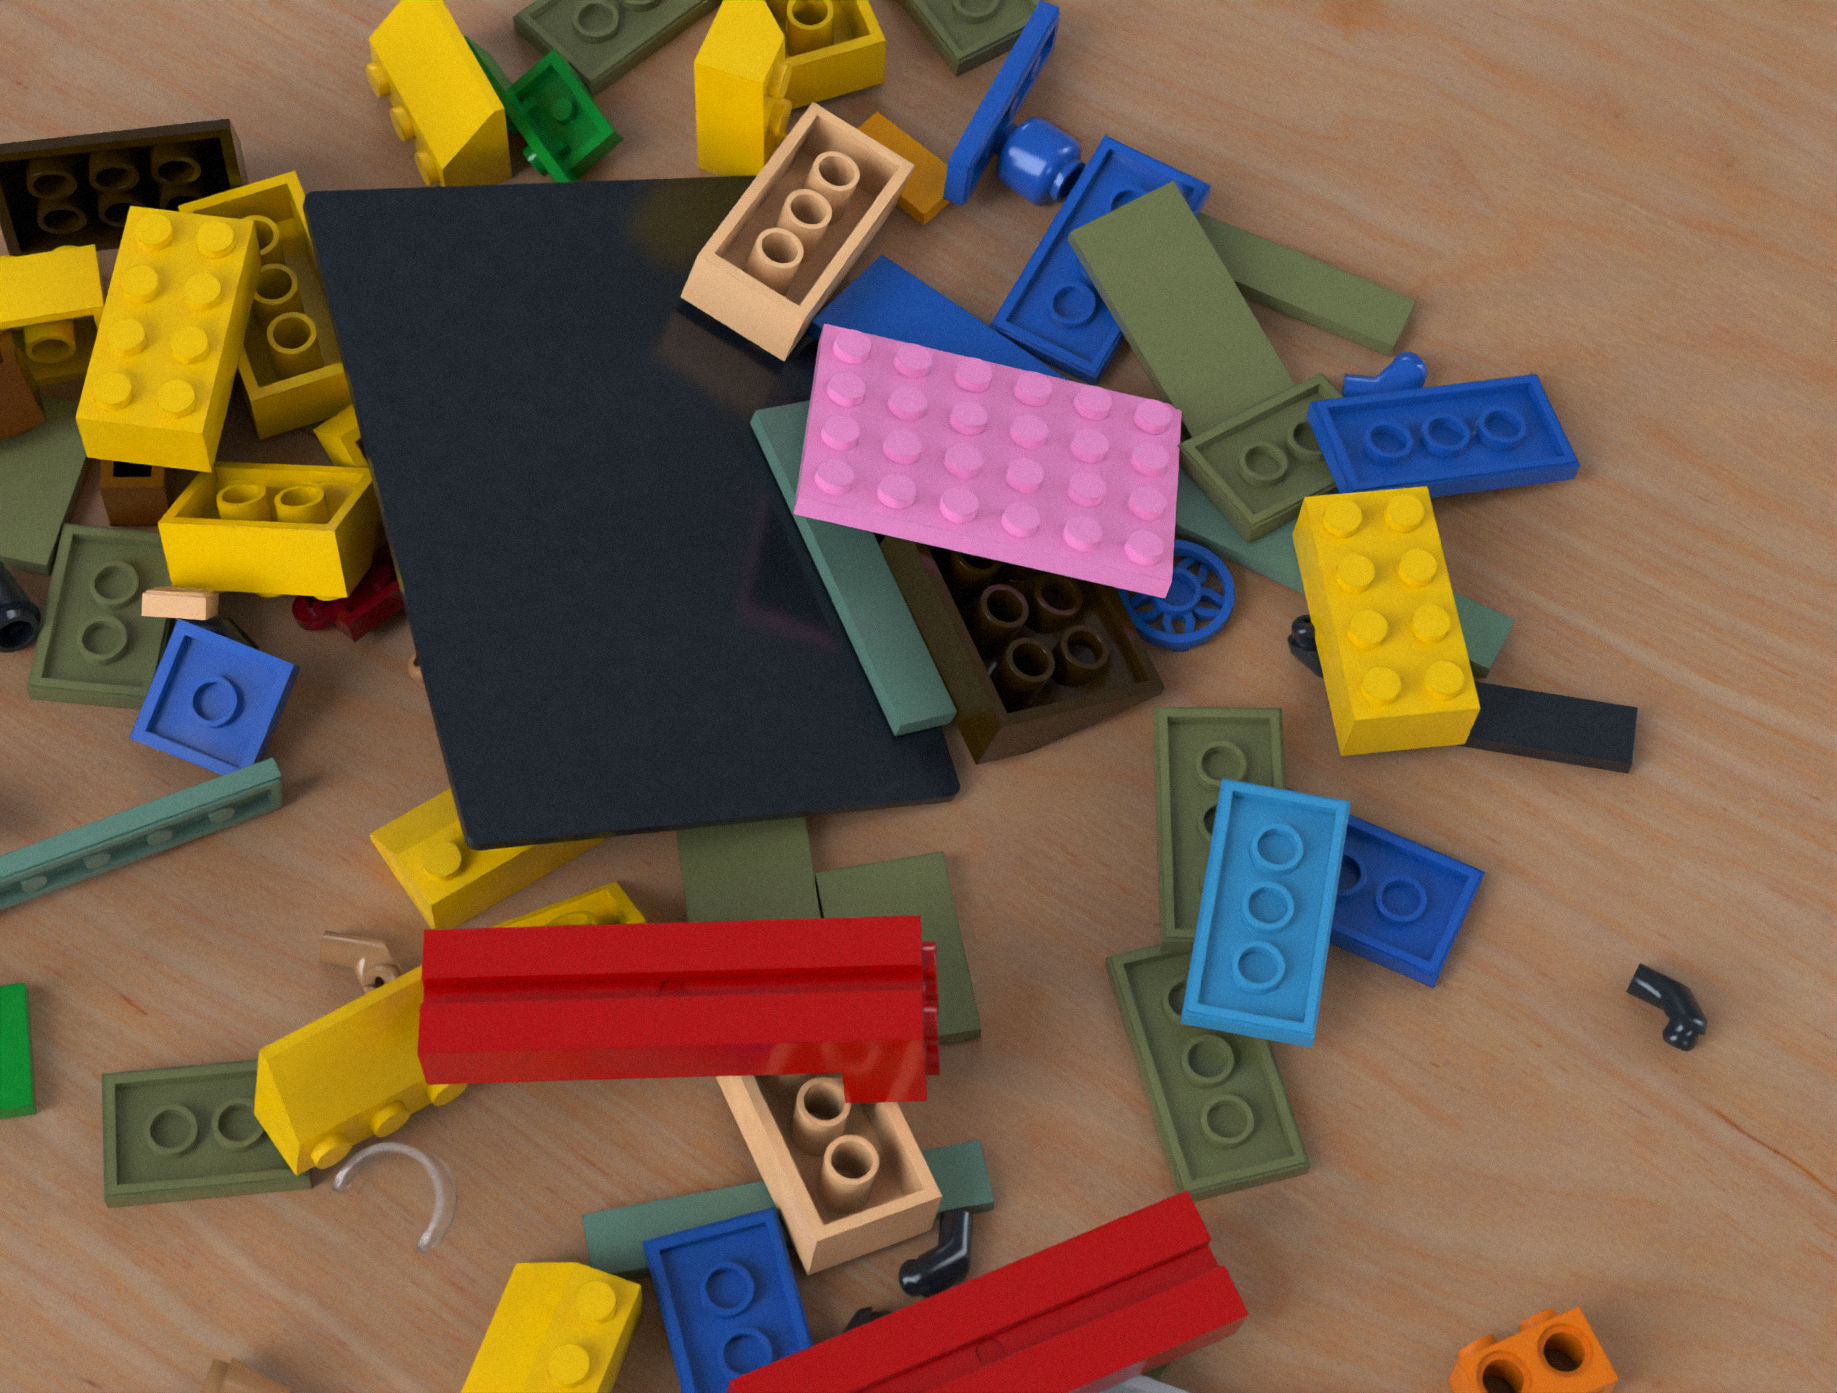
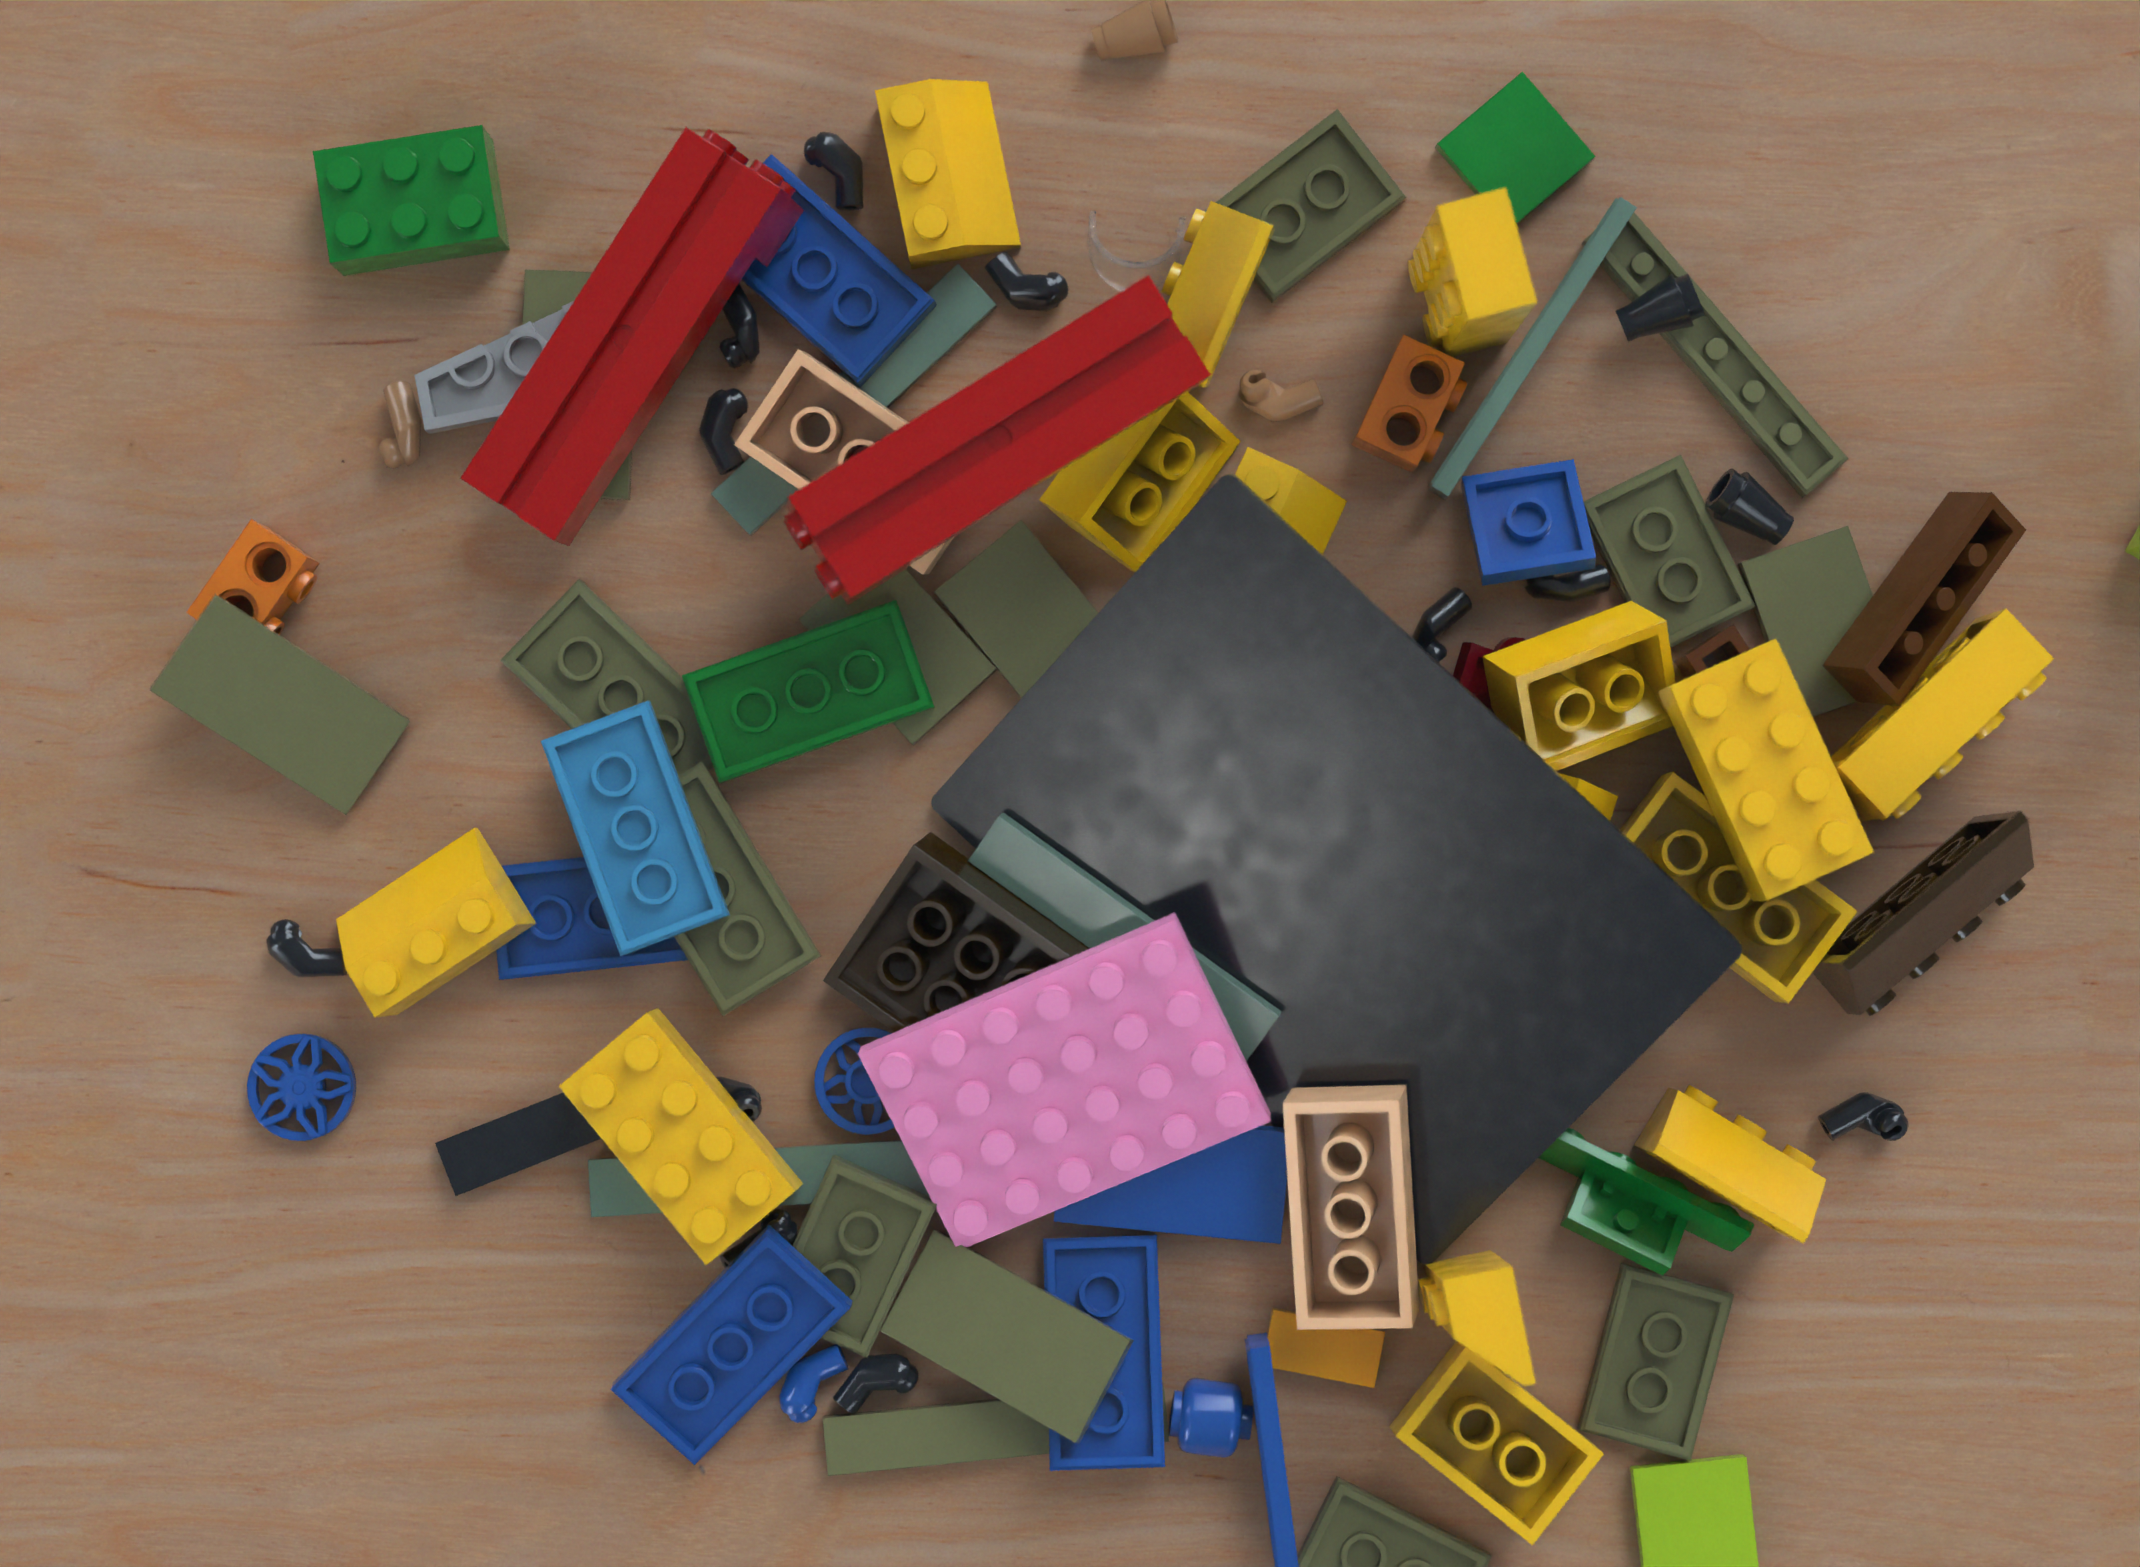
camera: 150 degrees right, 25 degrees up
(100, 904) = (1472, 274): none -> yellow brick
(180, 603) = (1608, 579): light nougat tile -> none
(255, 888) = (1399, 400): none -> orange brick
(291, 87) = (1866, 1112): none -> black arm
(384, 668) = (1440, 618): none -> black arm
(542, 1209) = (1027, 290): none -> black arm
(1030, 949) = (808, 691): none -> green tile
(1319, 354) = (876, 1374): none -> black arm
(1526, 946) = (430, 925): none -> yellow slope
(1568, 1237) = (279, 704): none -> olive tile
(1740, 890) = (301, 1087): none -> blue wheel

